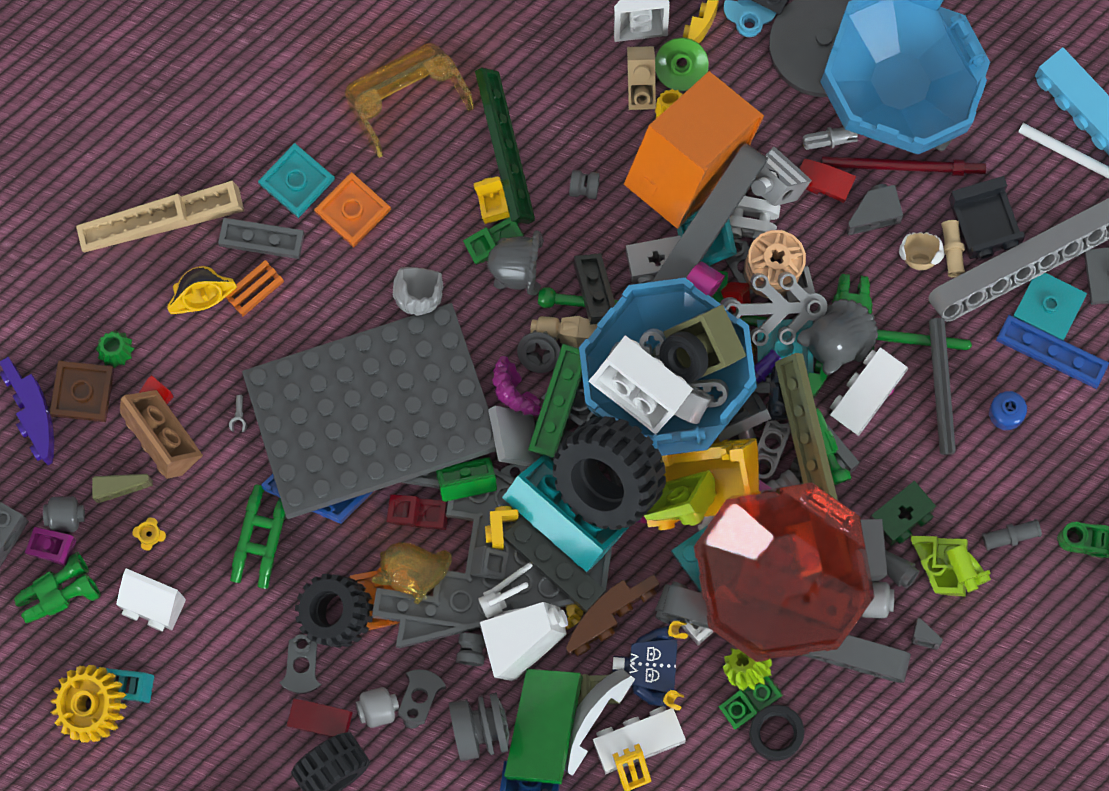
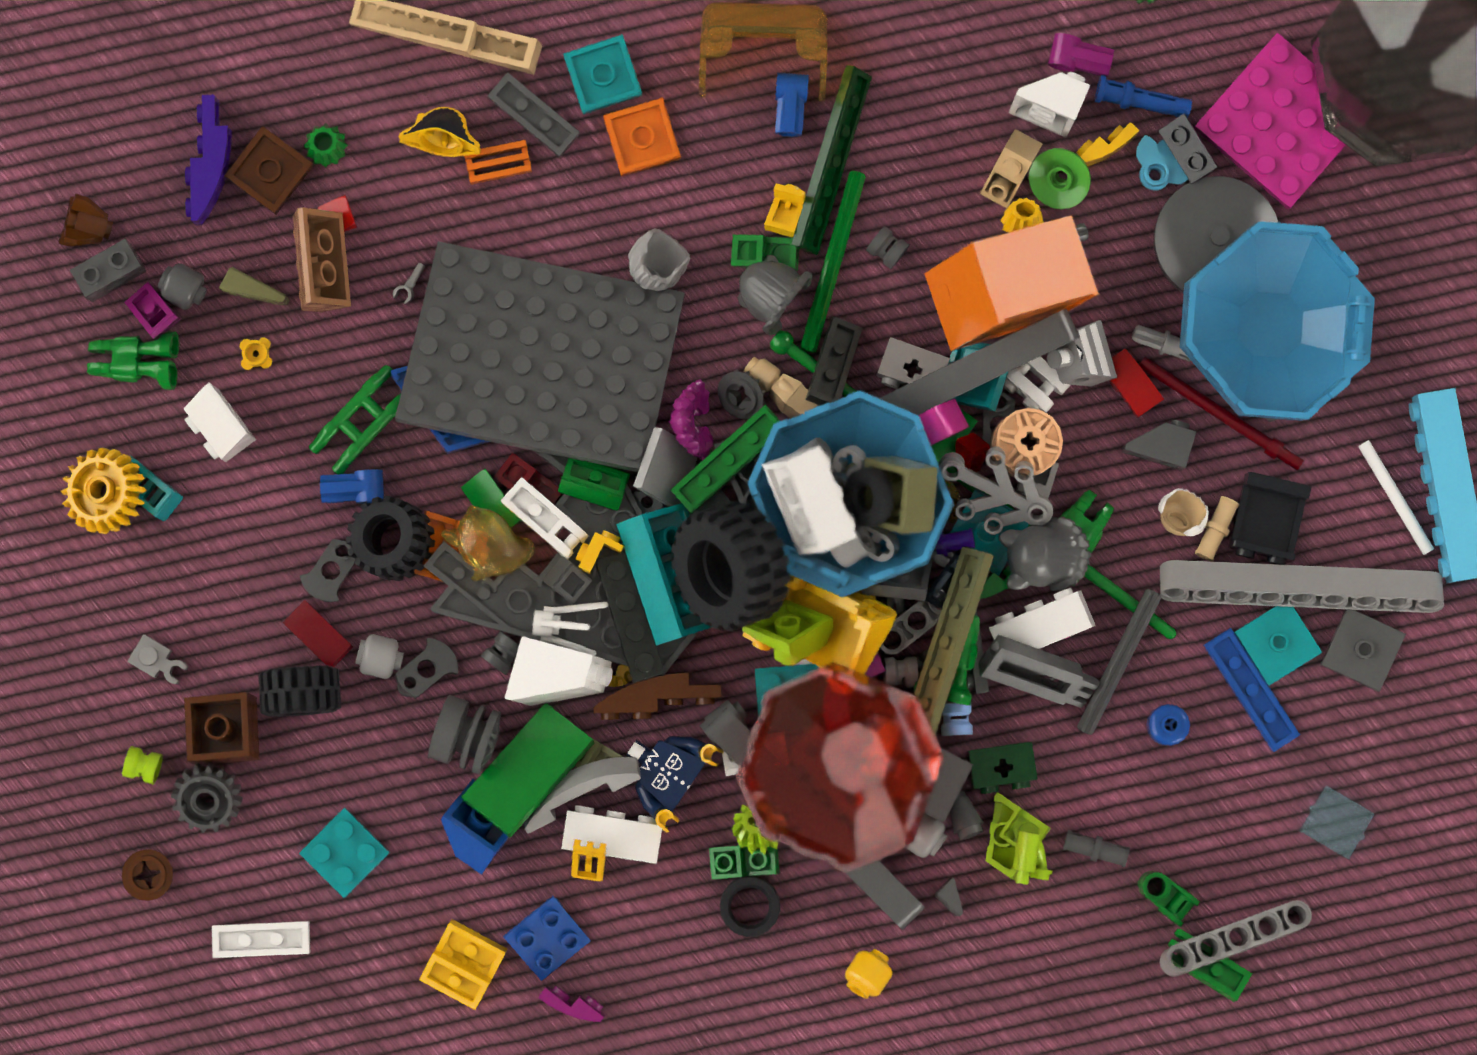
camera: 25 degrees right, 10 degrees up
(281, 591) = (357, 487): none -> blue piece
(385, 534) = (485, 493): none -> green slope
(443, 526) = (543, 517): none -> white plate
(447, 117) = (791, 96): none -> blue piece
(549, 218) = (832, 261): none -> green axle
(854, 501) = (956, 726): none -> light blue wheel
(872, 426) = (1021, 668): none -> dark grey hinge
(898, 730) = (868, 973): none -> yellow head

